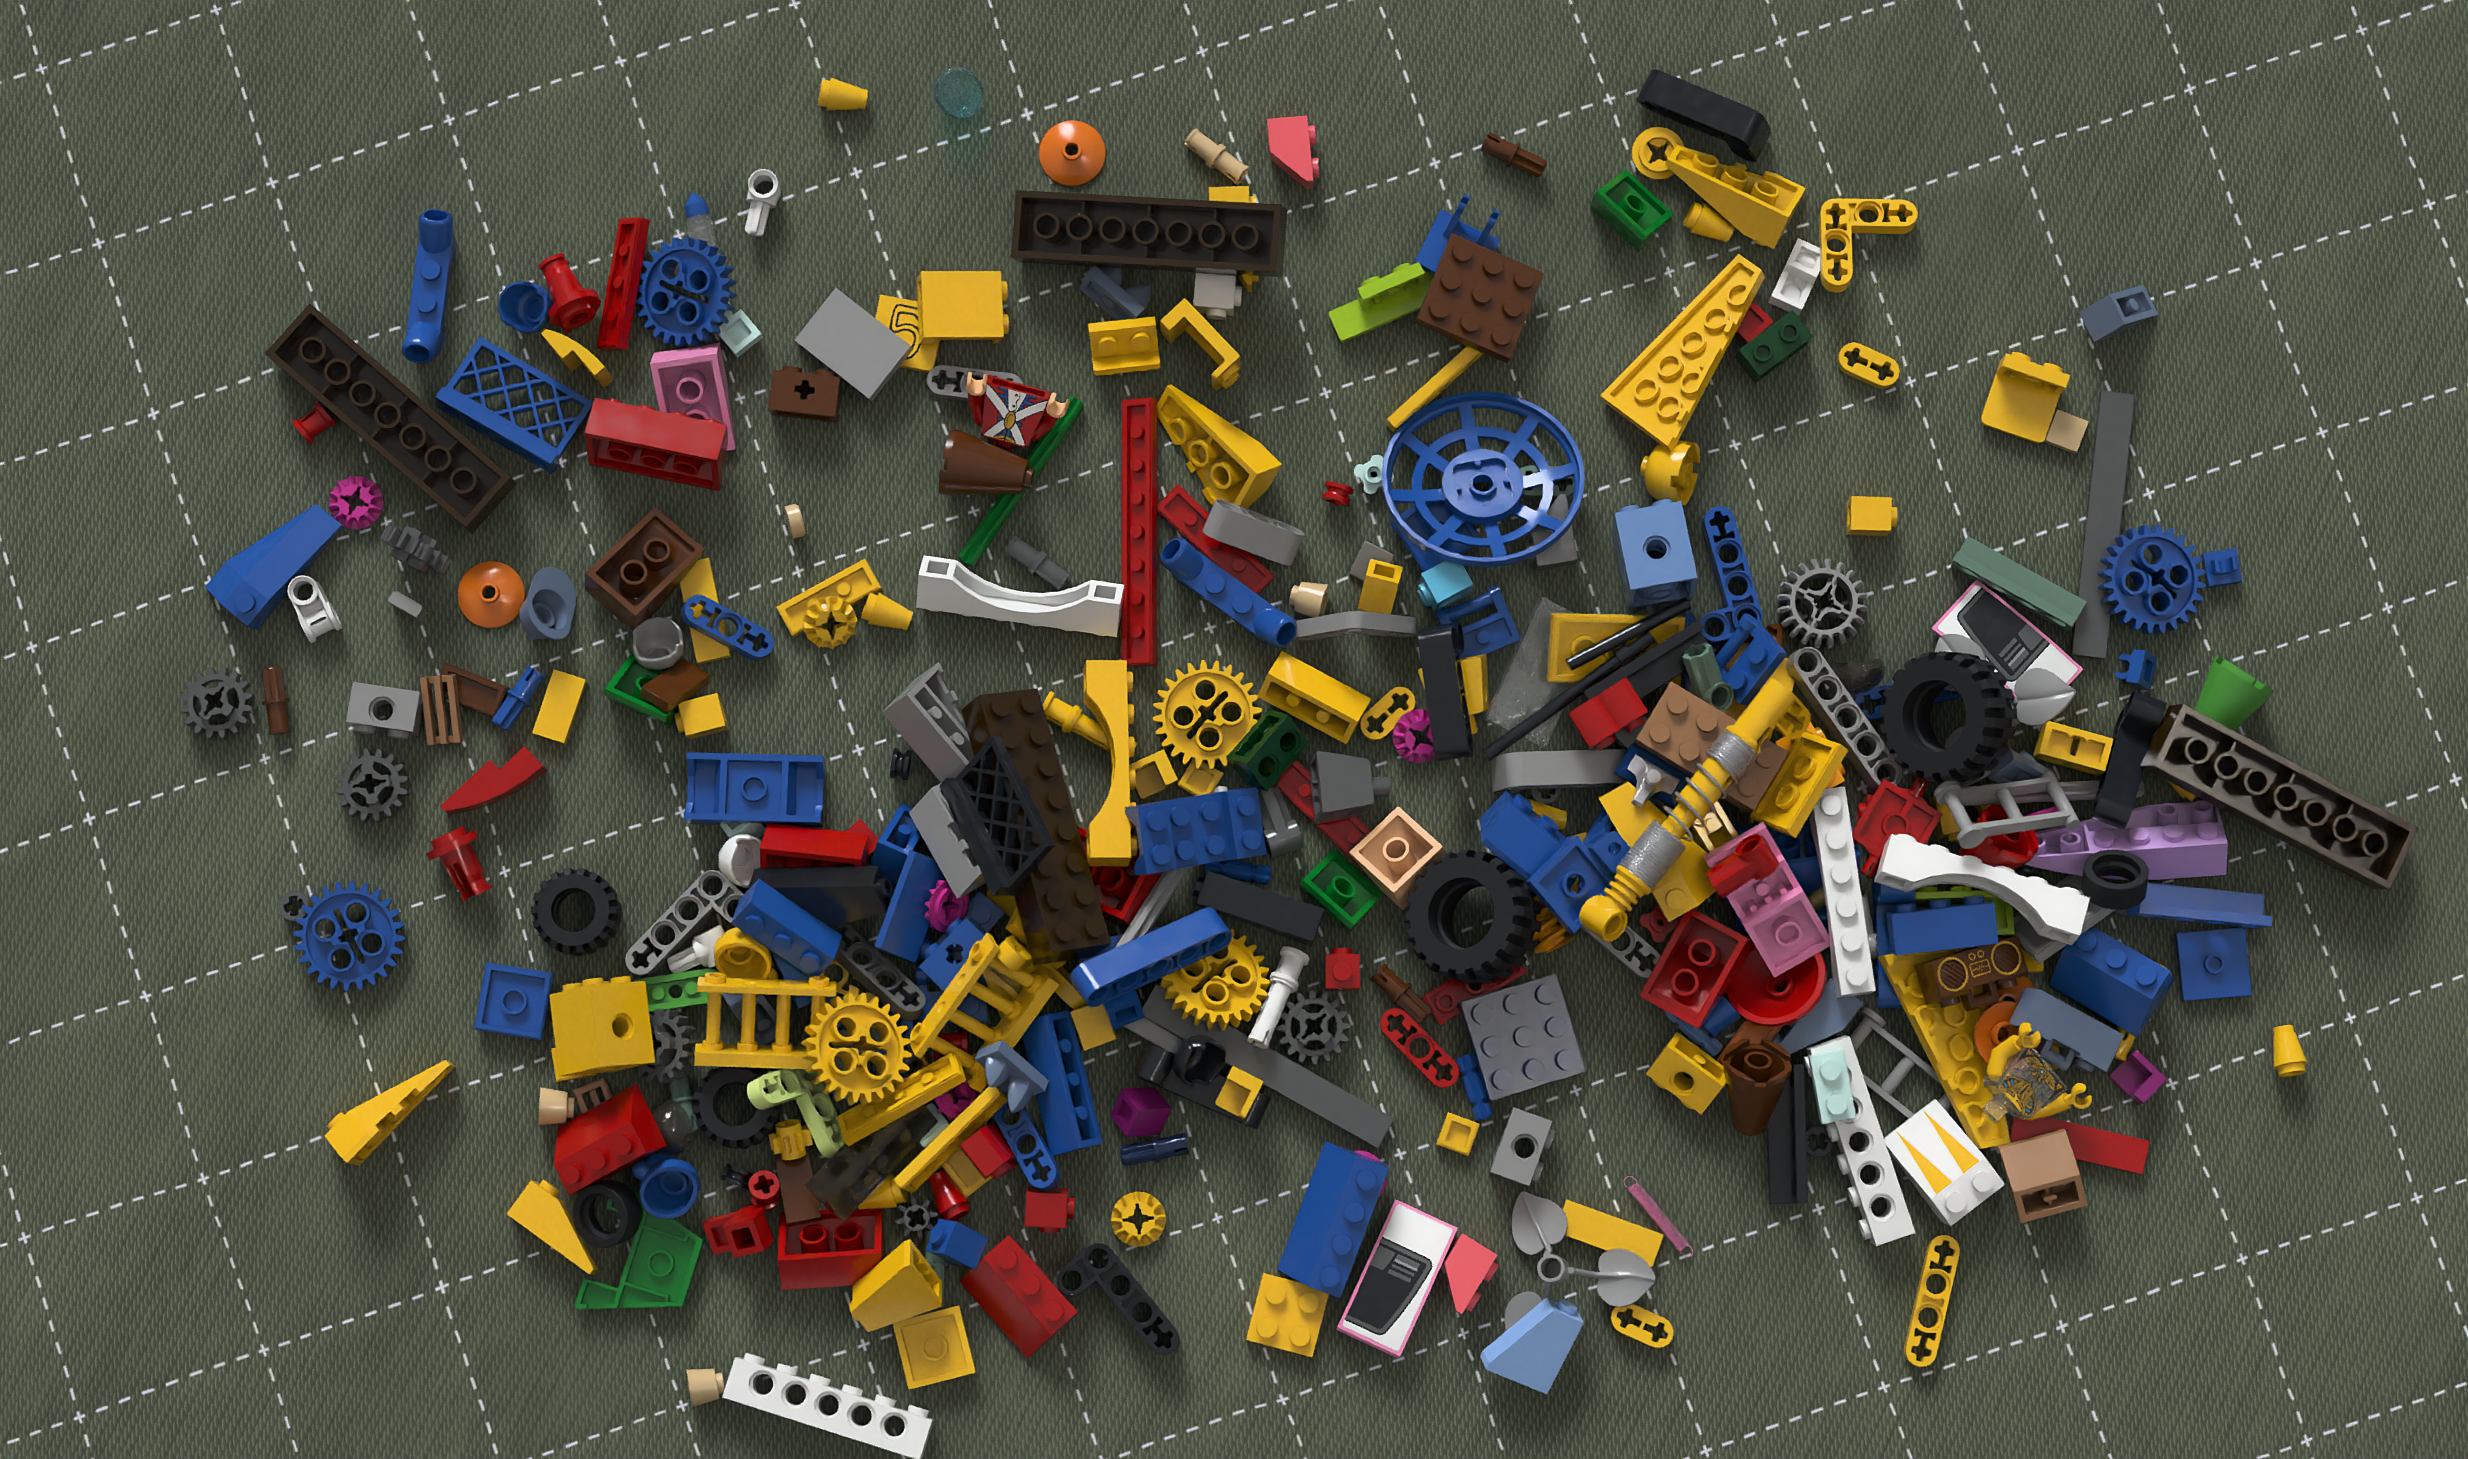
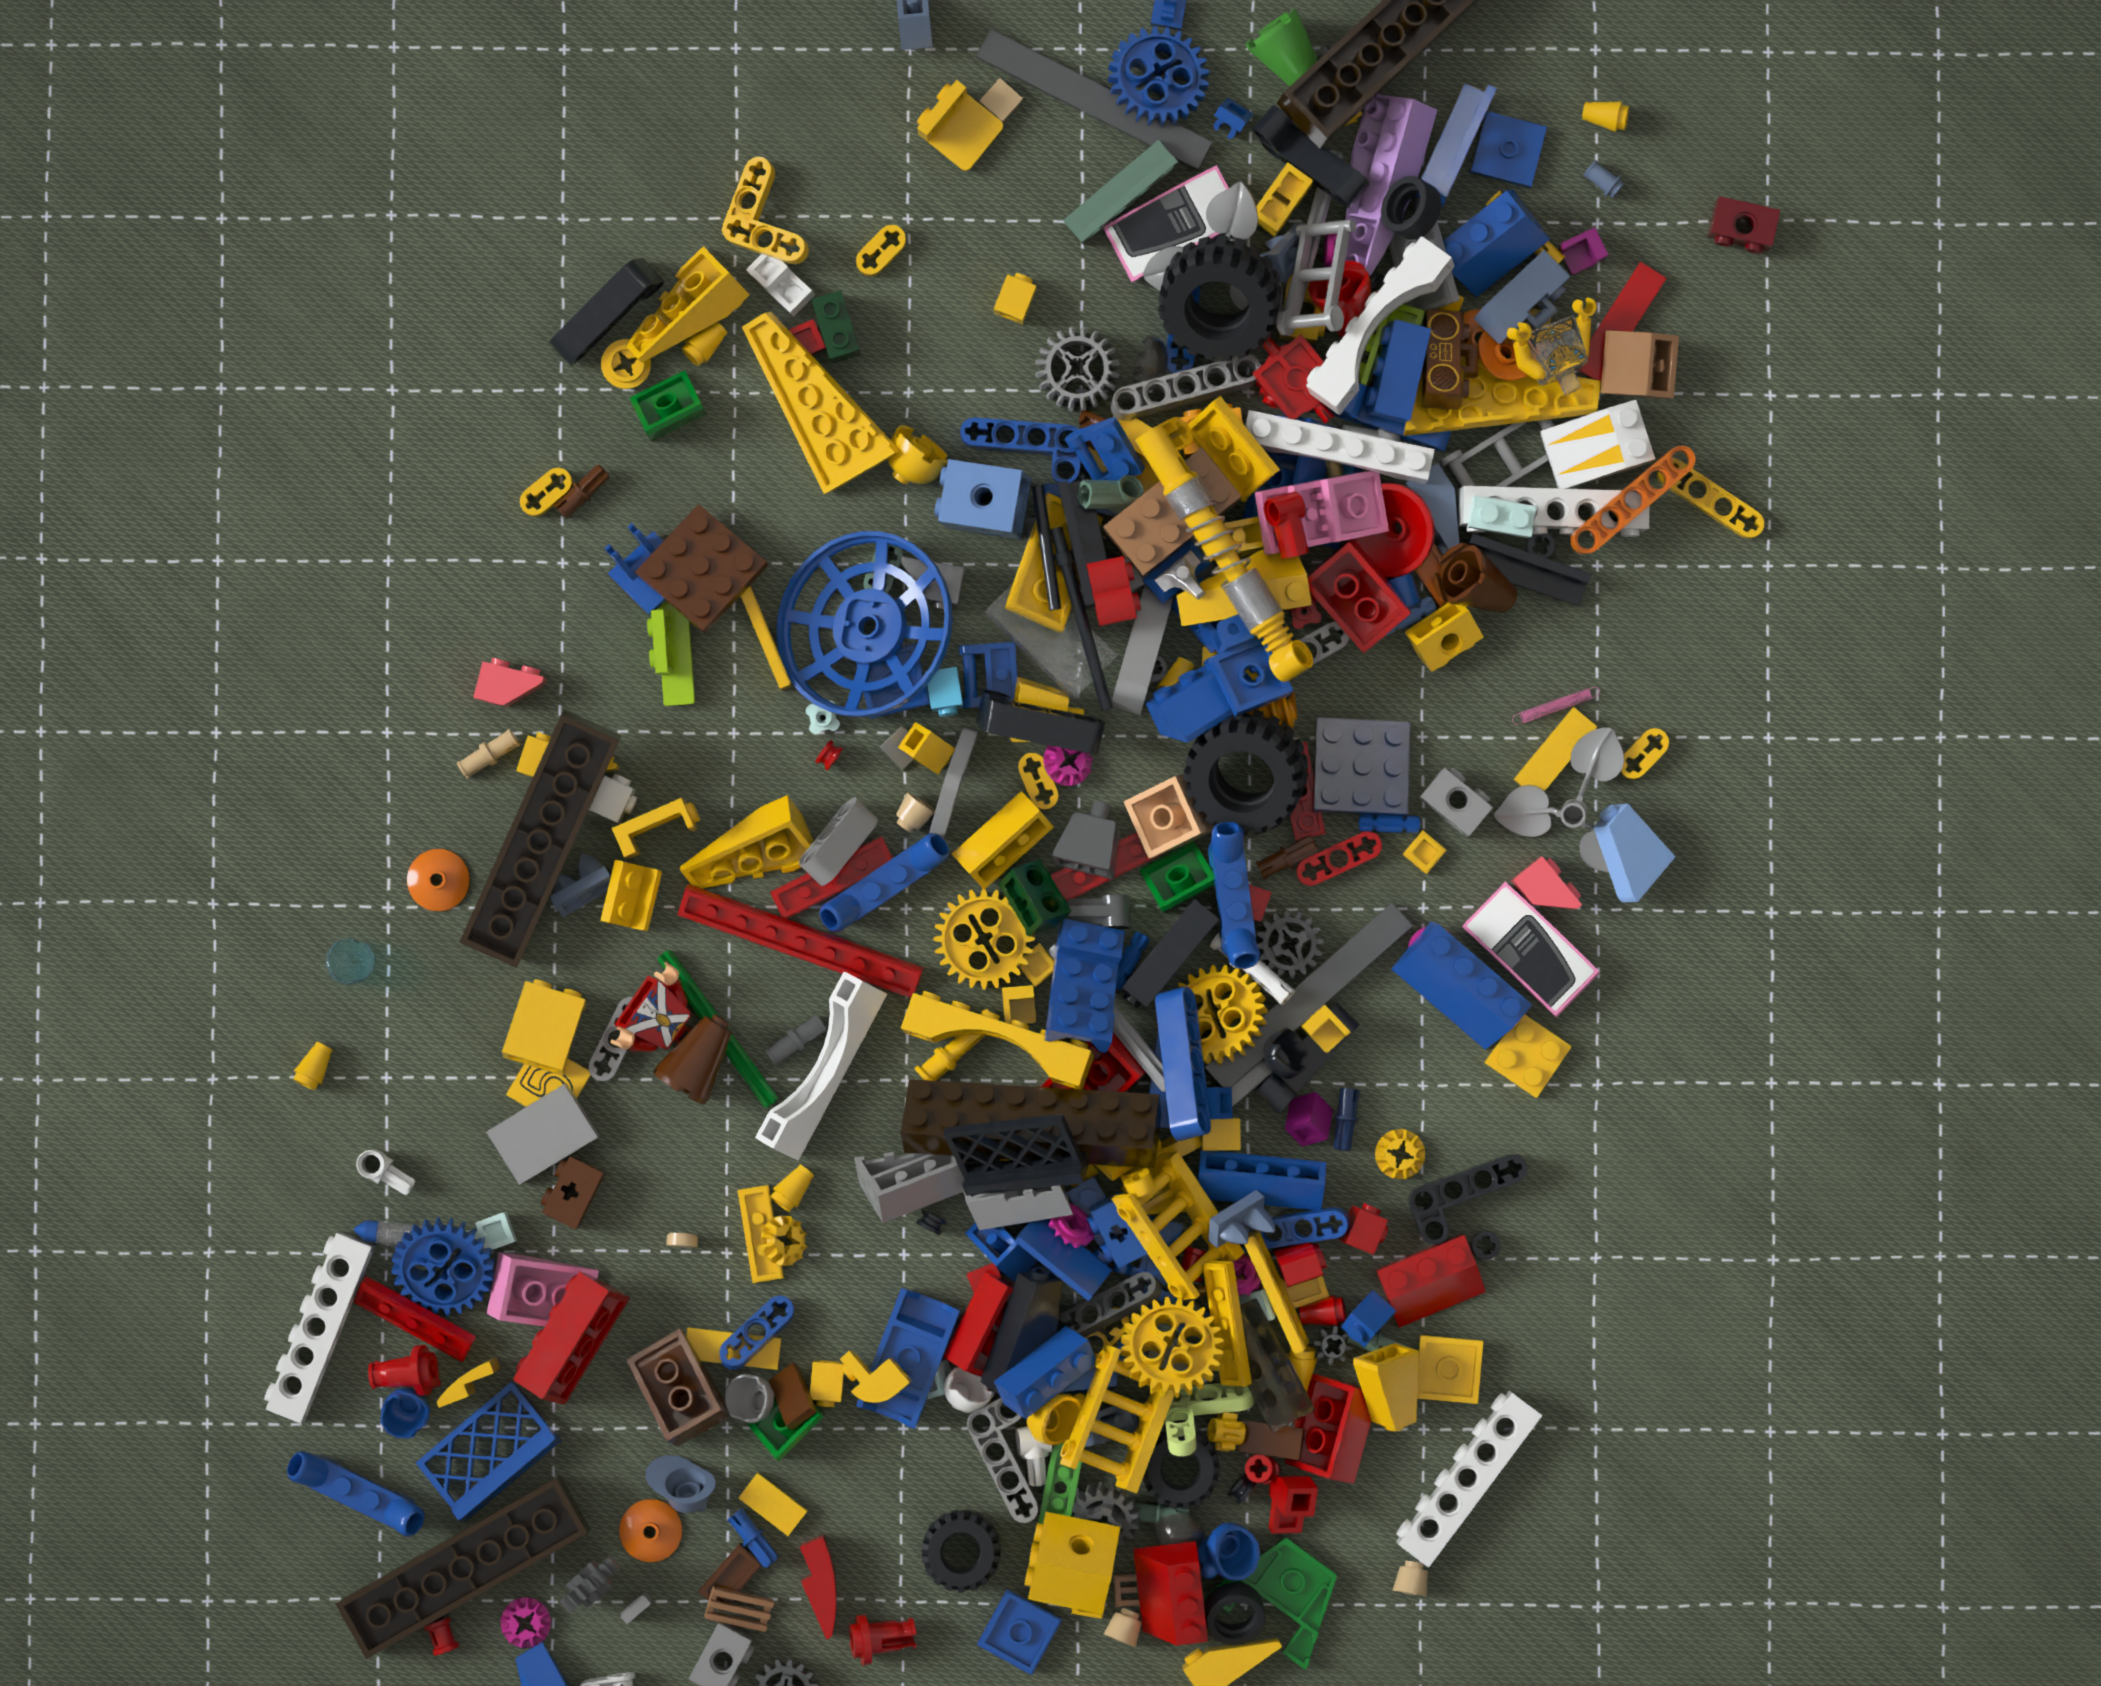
camera: 70 degrees left, 5 degrees up
(500, 177) = (297, 1405): none -> white brick
(715, 765) = (877, 1386): none -> yellow brick
(1084, 1346) = (1478, 1251): none -> black bush
(1342, 948) = (1233, 895): none -> blue plate
(1503, 113) = (541, 486): none -> yellow beam
(1916, 1222) = (1644, 489): none -> orange beam
(2219, 1073) = (1604, 179): none -> sand blue pin
(2242, 1248) = (1761, 219): none -> dark red brick

